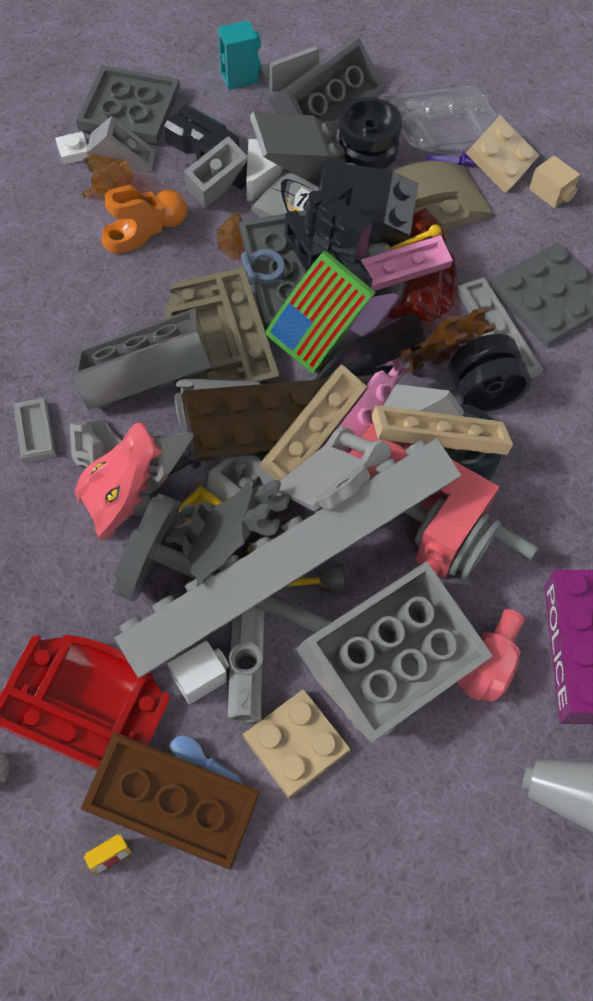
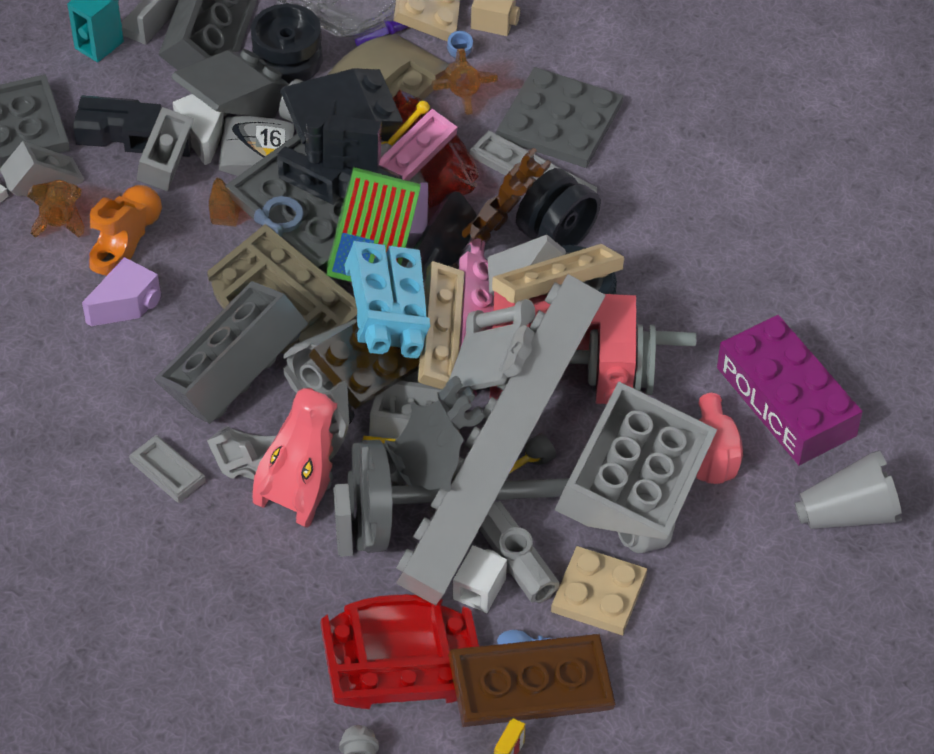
camera: 30 degrees left, 10 degrees down
(104, 271) = (122, 294): none -> lavender slope
(113, 548) = (343, 520): none -> light grey tile
(275, 404) = (388, 298): none -> medium azure hips
(481, 228) = (469, 85): none -> clear orange brick
(508, 196) = (459, 40): none -> medium blue hinge

